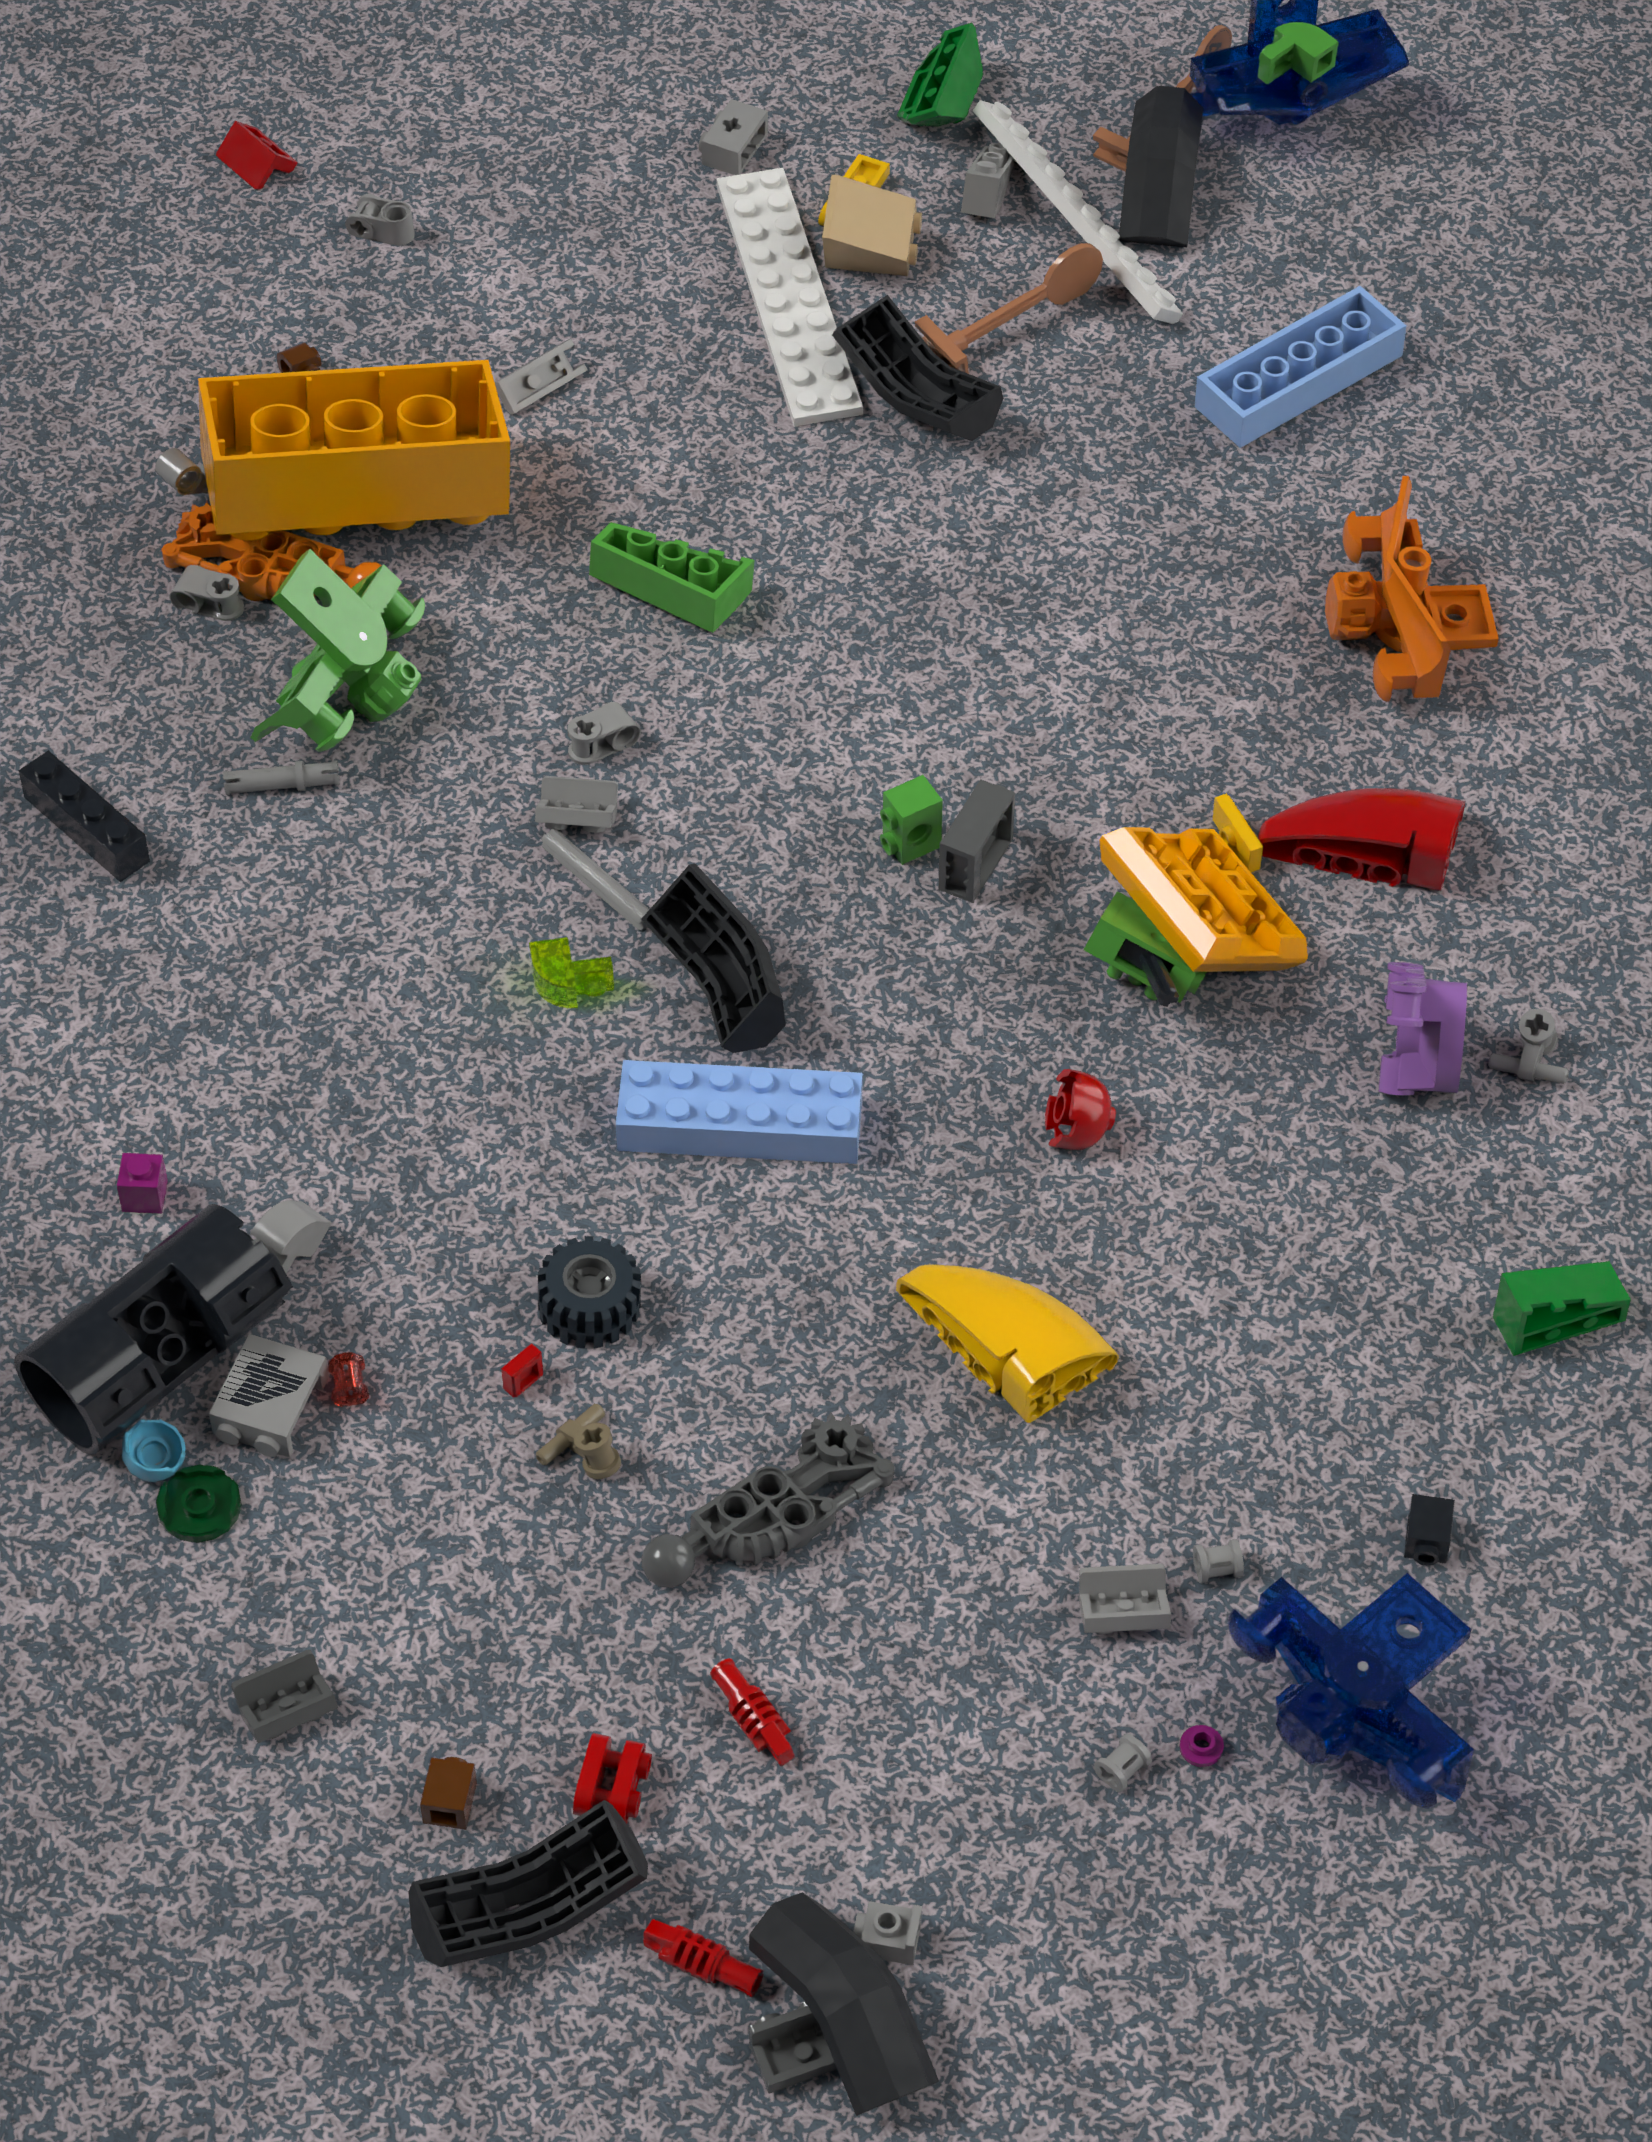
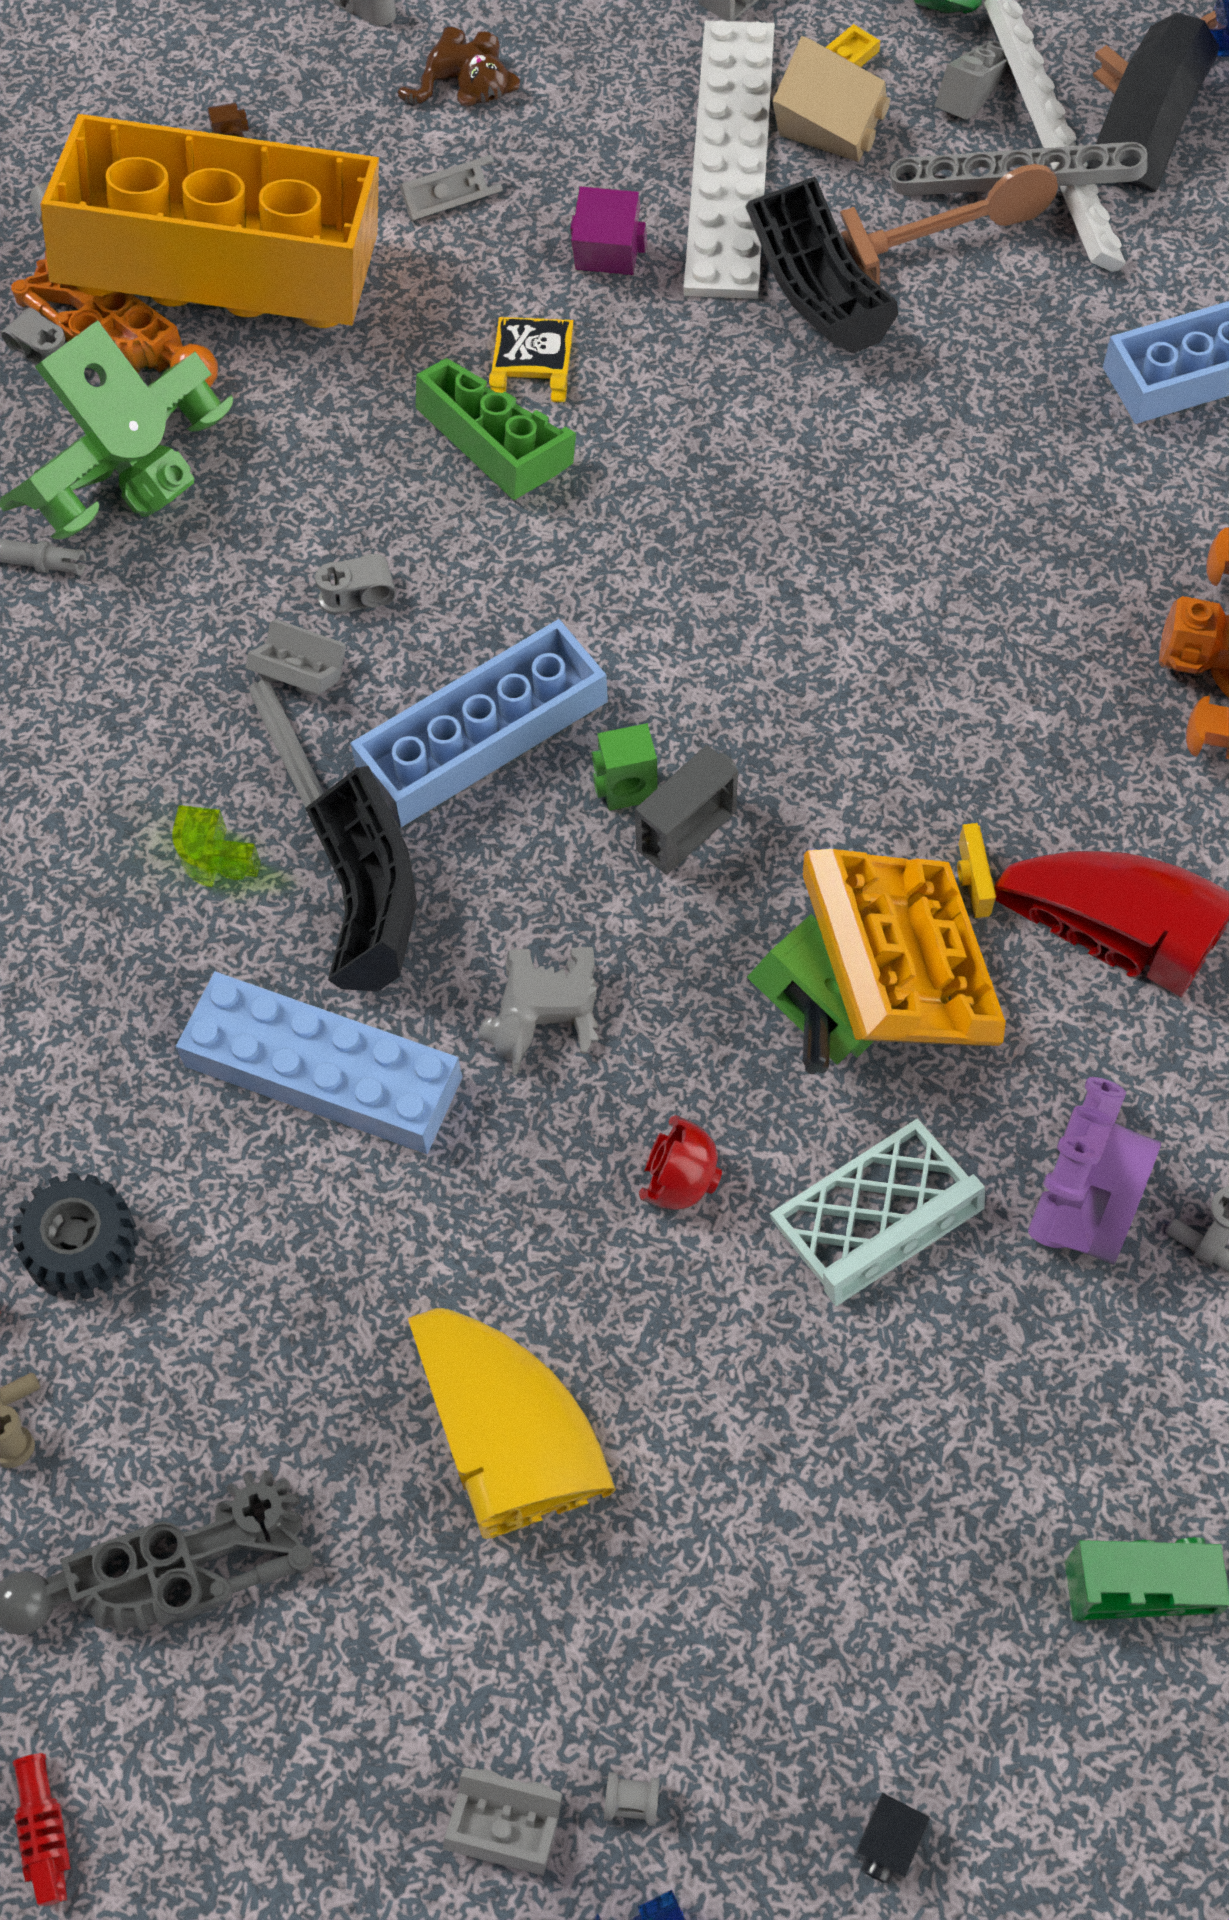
camera: 20 degrees right, 10 degrees up
(524, 269) = (475, 64): none -> reddish brown animal
(677, 502) = (532, 351): none -> flag
(707, 383) = (607, 231): none -> magenta plate
(770, 809) = (481, 721): none -> light blue brick
(911, 1017) = (542, 998): none -> light grey animal
(1042, 249) = (1000, 161): none -> light grey beam
(1280, 1119) = (906, 1234): none -> light aqua fence

